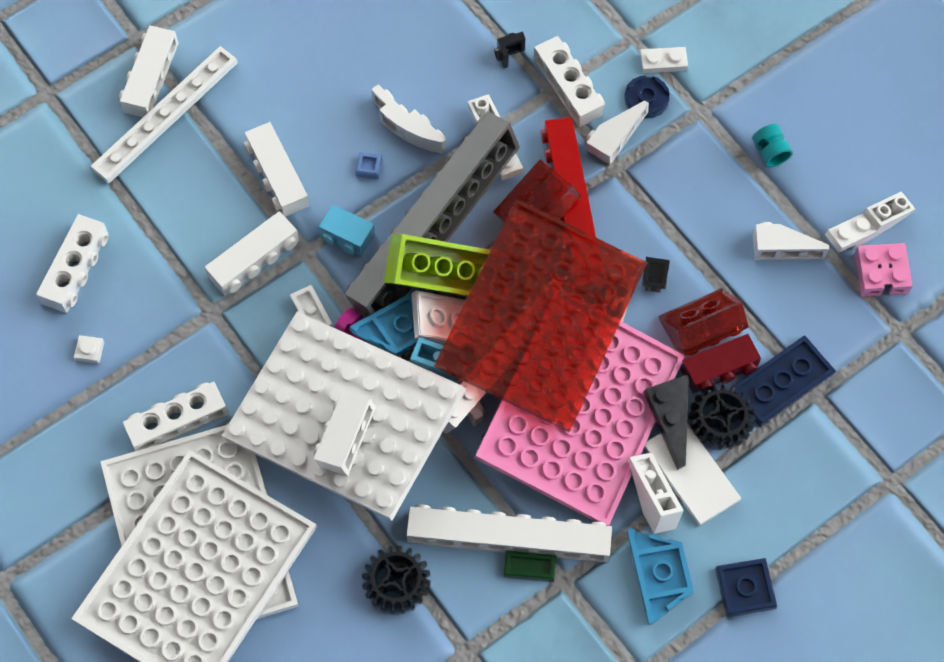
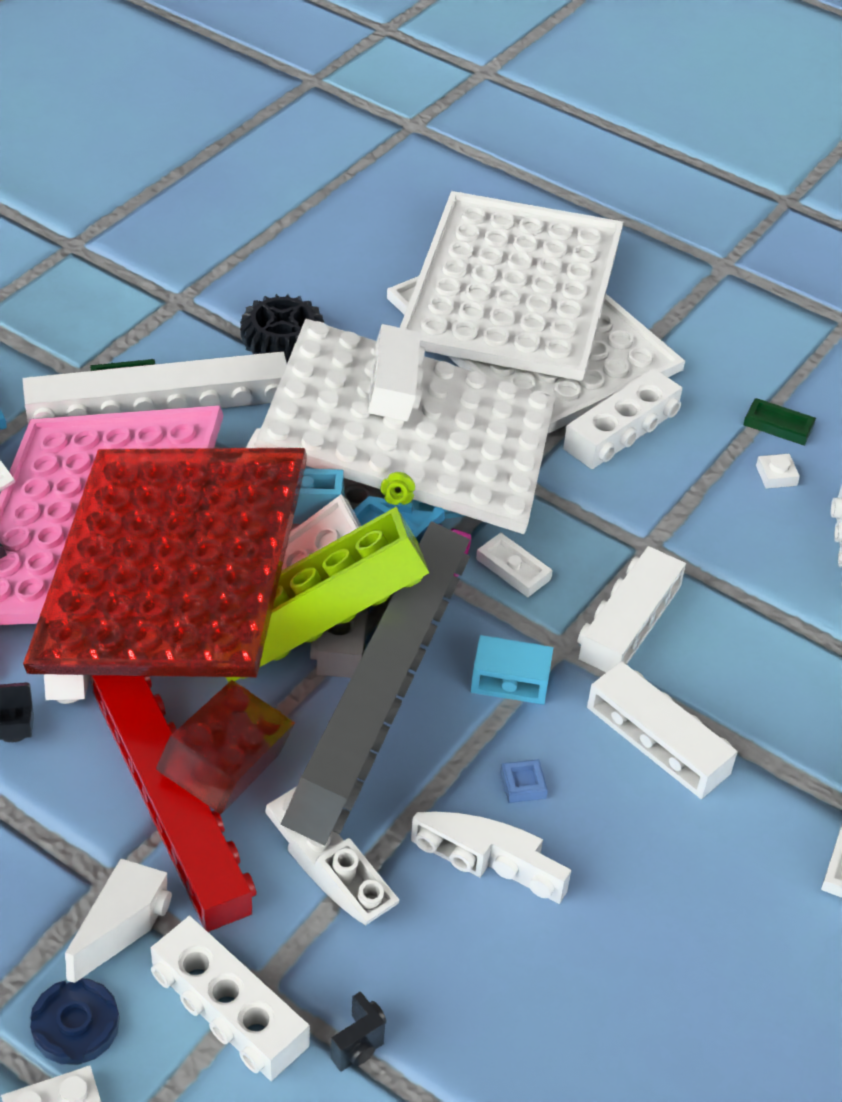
camera: 160 degrees right, 20 degrees down
(59, 395) = (779, 421): none -> dark green tile
(376, 342) = (401, 480): none -> lime plate

